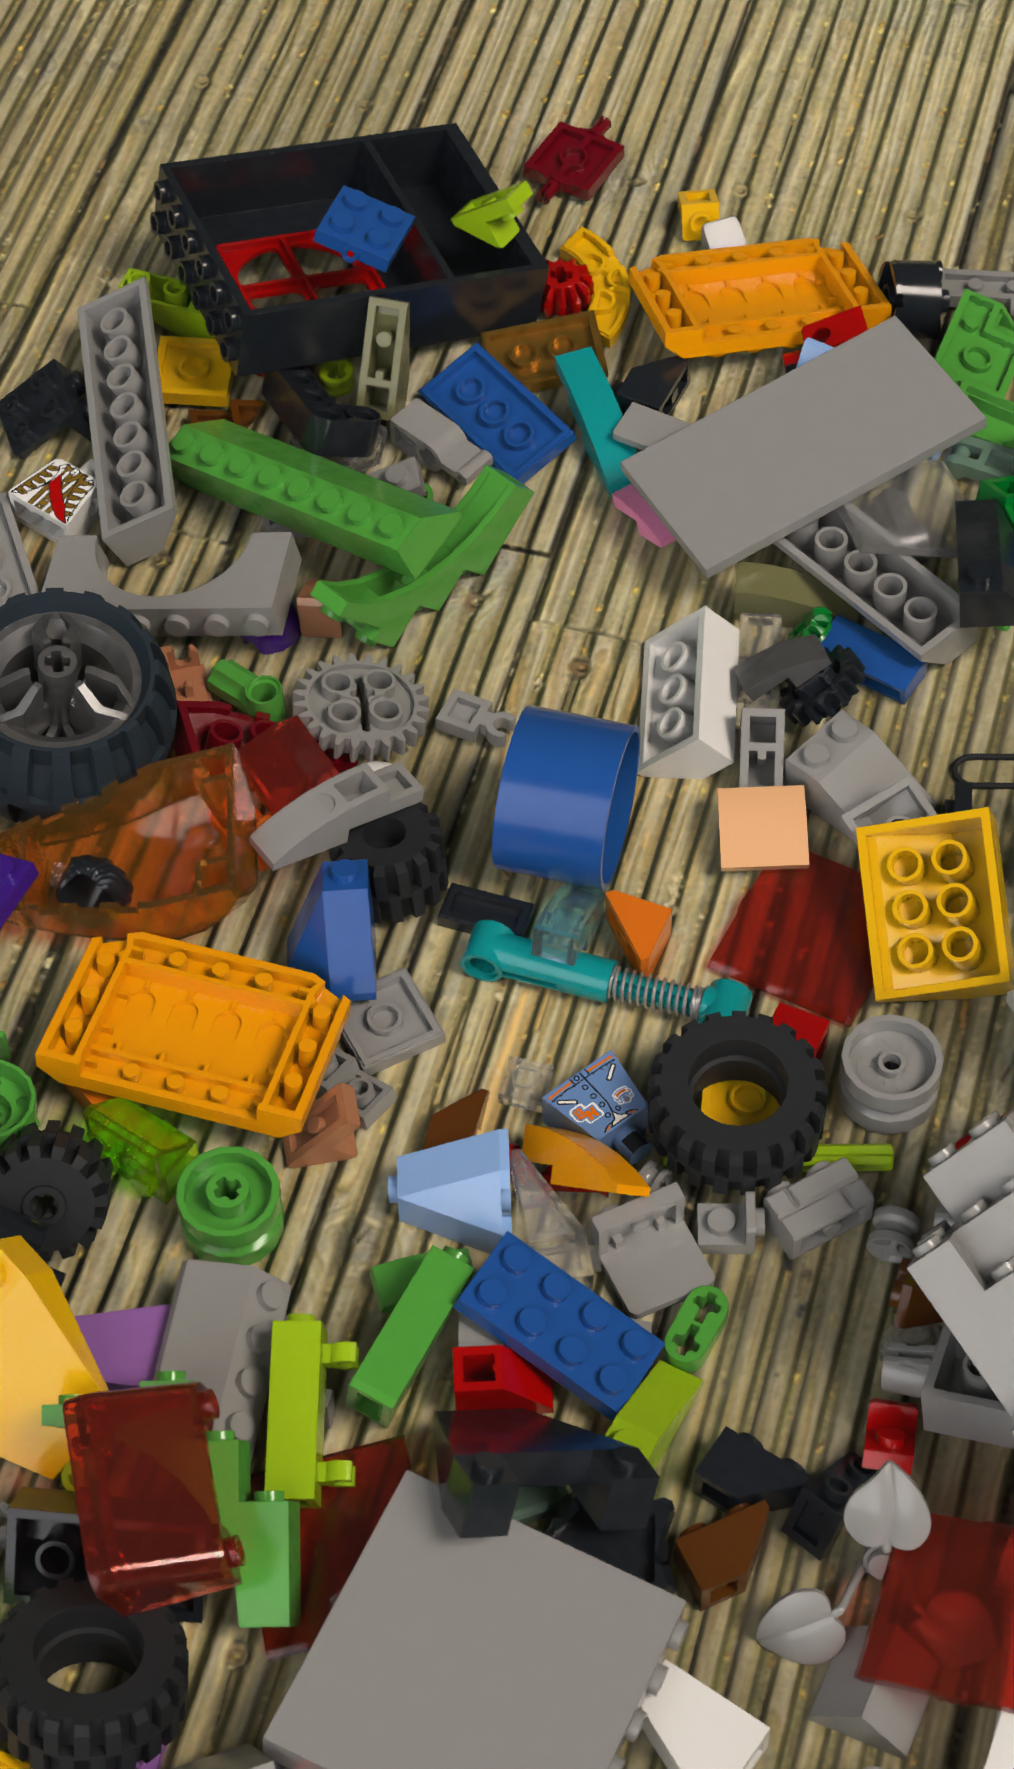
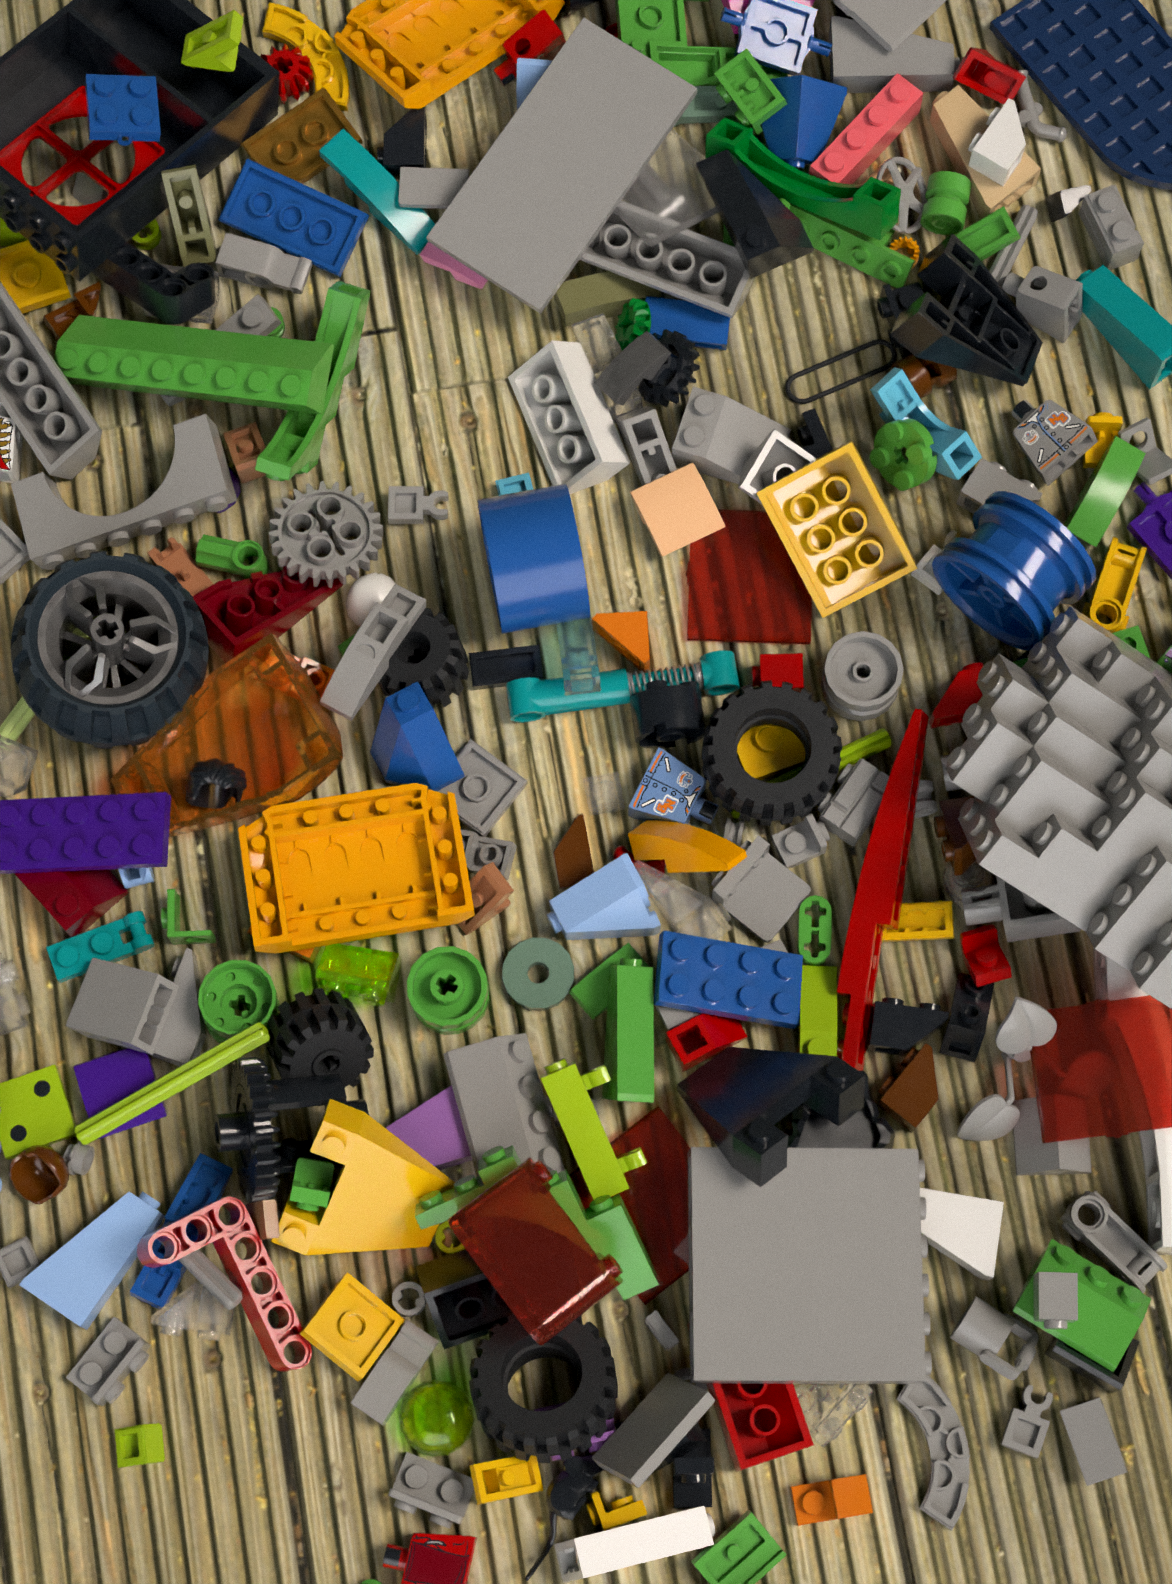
camera: 25 degrees left, 20 degrees up
(267, 1690) = (661, 1331): none -> light grey tile
(284, 764) = (303, 616): clear red slope -> none
(340, 1216) = (538, 952): none -> sand green tile
(637, 1017) = (667, 714): none -> black brick
(795, 1304) = (880, 890): none -> red slope
(825, 1367) = (923, 922): none -> yellow plate

